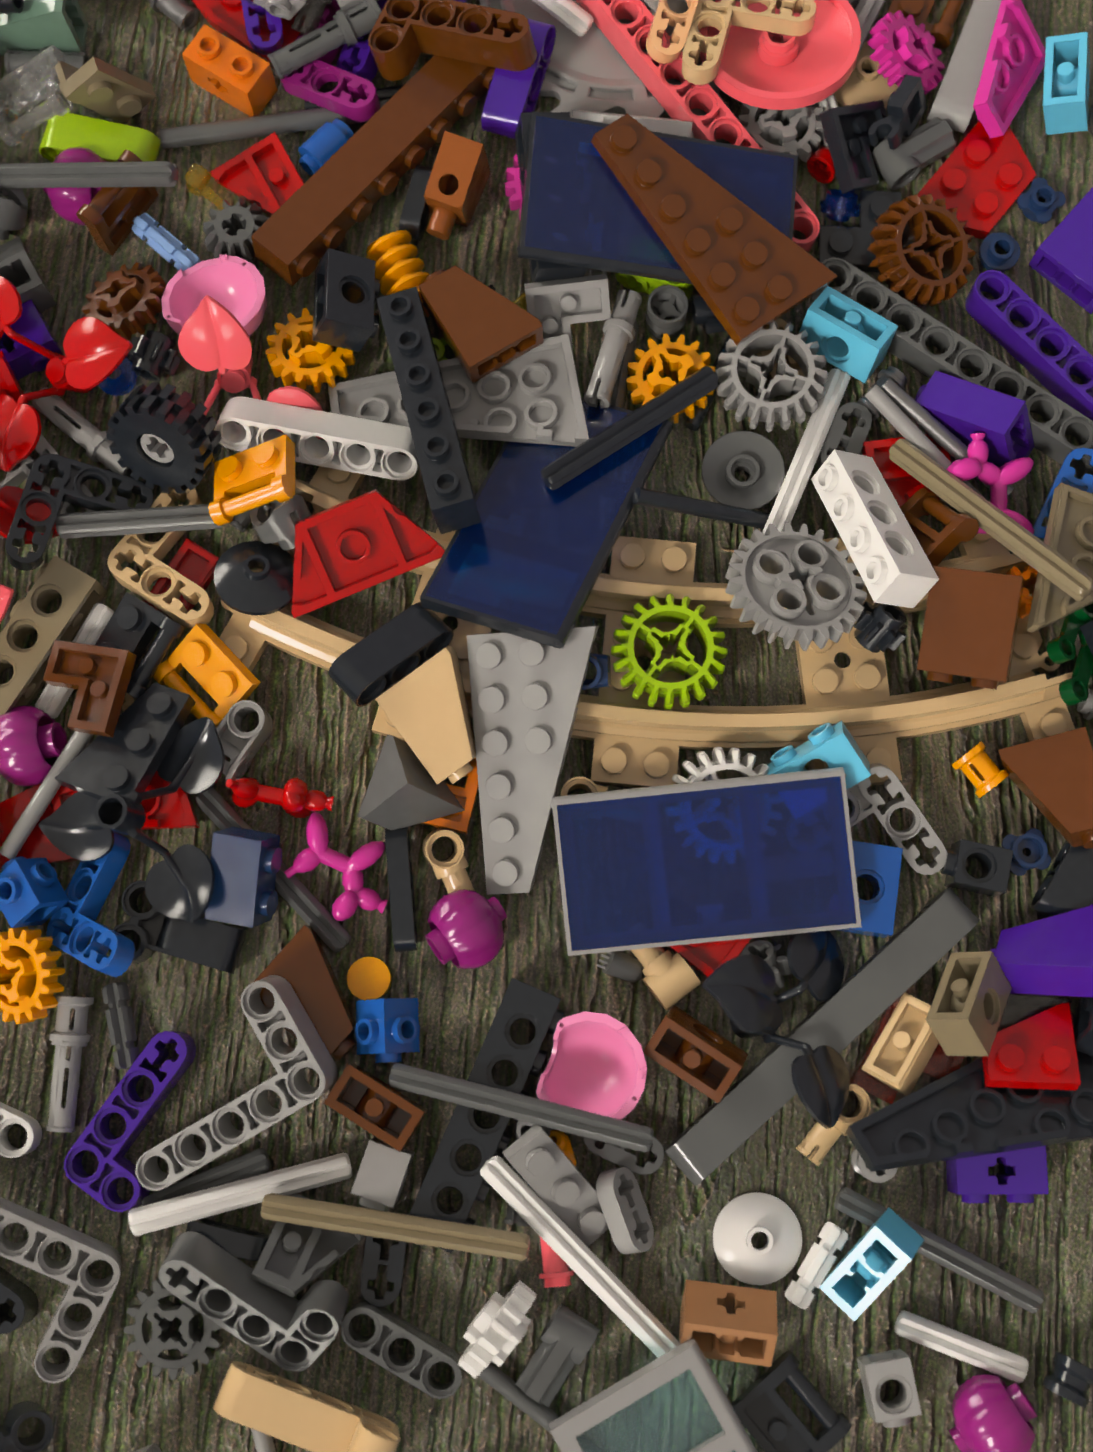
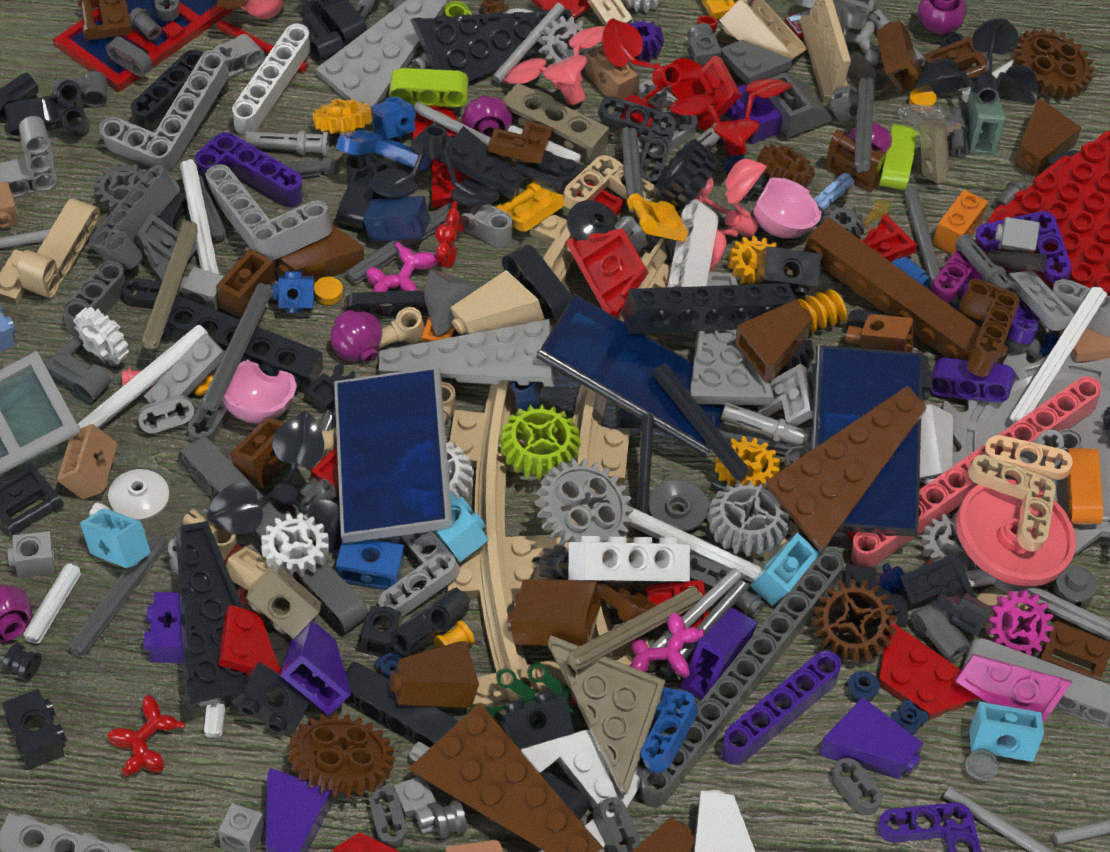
camera: 85 degrees right, 25 degrees down
(562, 972) = (322, 390): none -> black plate
(895, 1002) = (295, 544): none -> white gear
(968, 799) = (430, 621): none -> black piece

